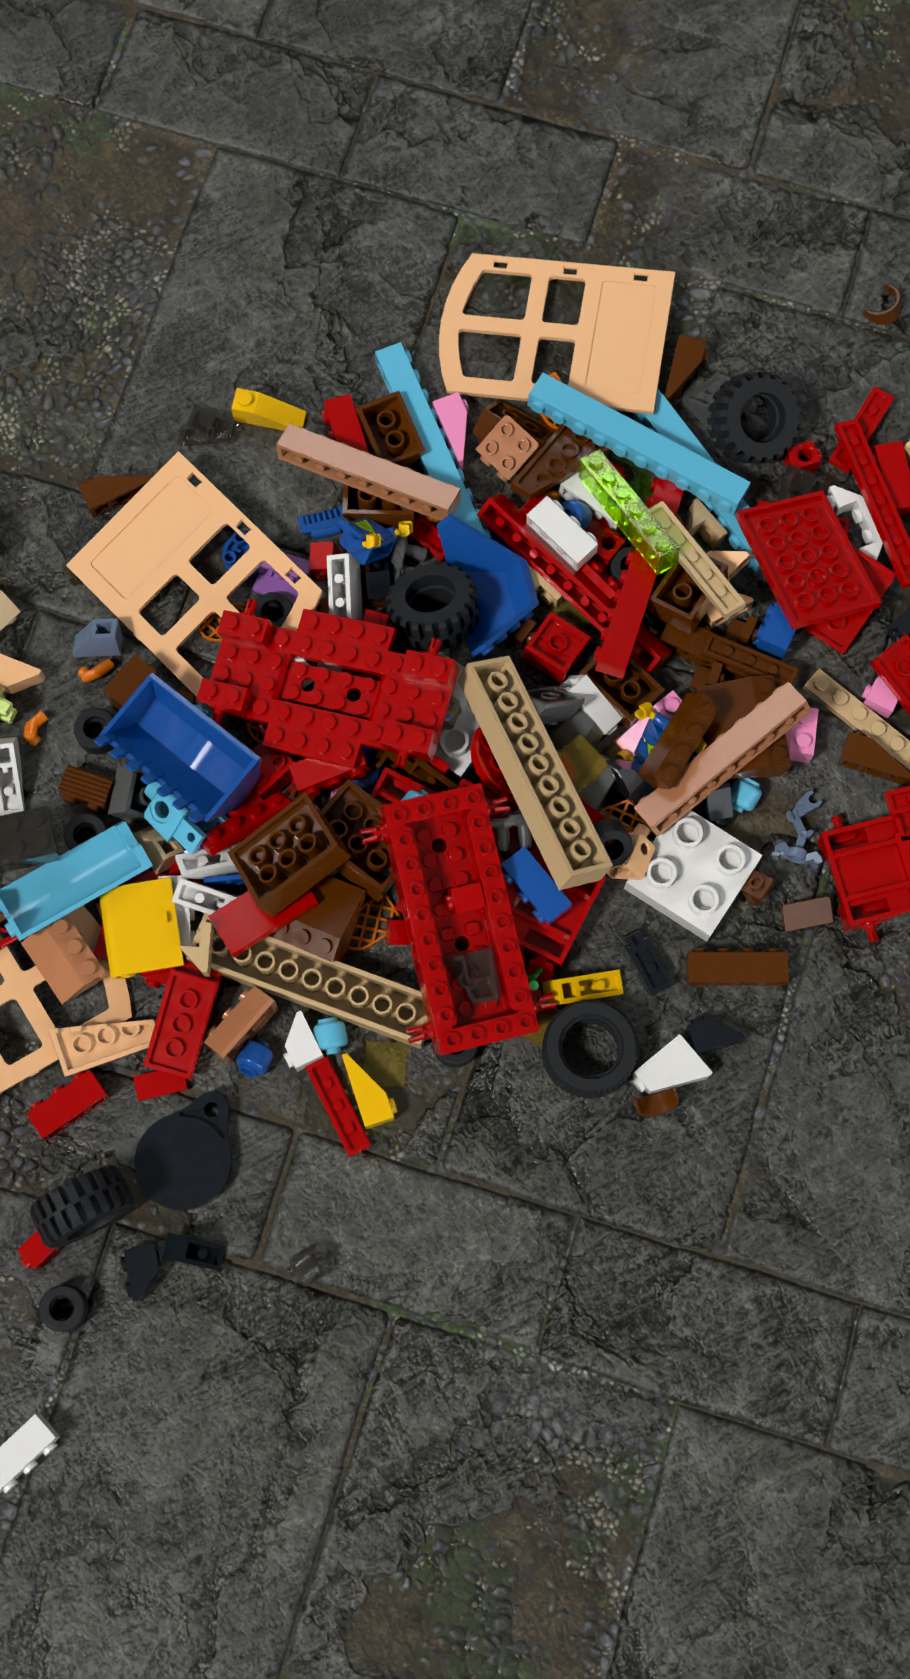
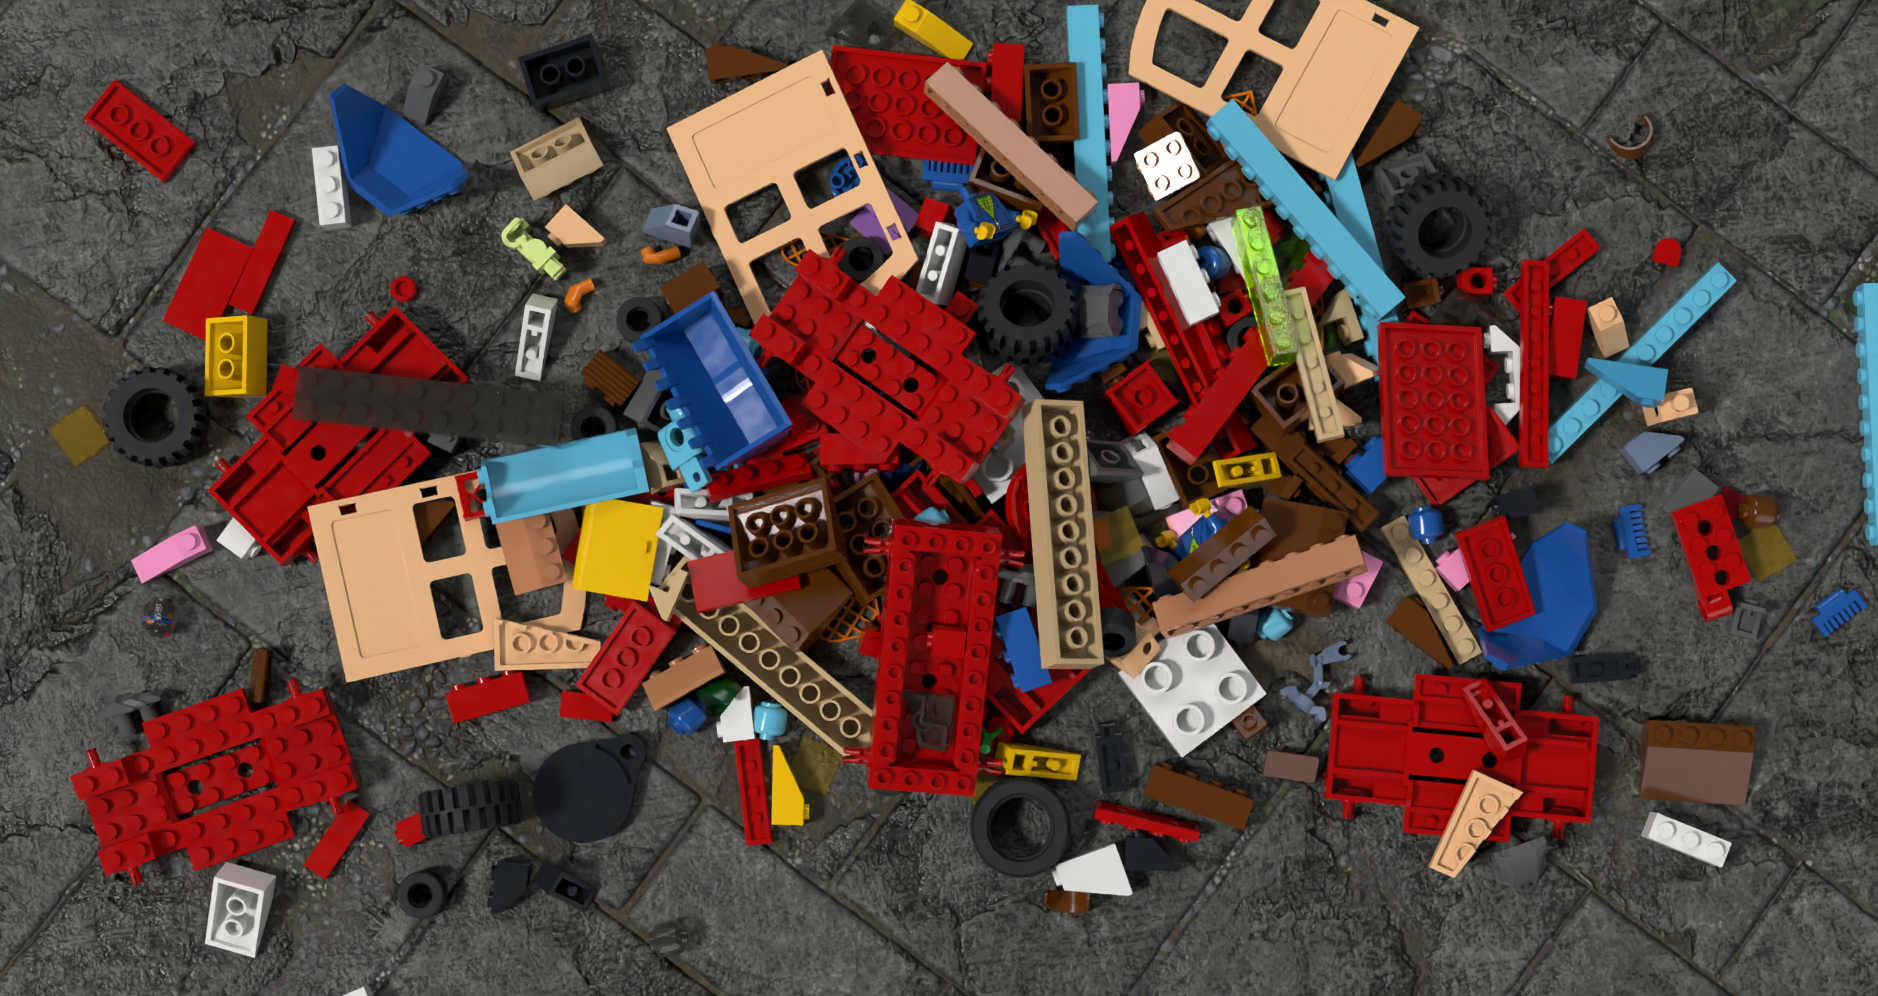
camera: 25 degrees right, 10 degrees up
(262, 484) = (895, 112): none -> red plate
(276, 1029) = (718, 694): none -> dark green helmet
(494, 584) = (1099, 311): none -> dark grey slope
(673, 671) = (1247, 470): none -> yellow slope
(689, 1008) = (1155, 823): none -> red plate
(763, 482) = (1422, 293): none -> reddish brown bracket
(841, 668) = (1426, 524): none -> blue head

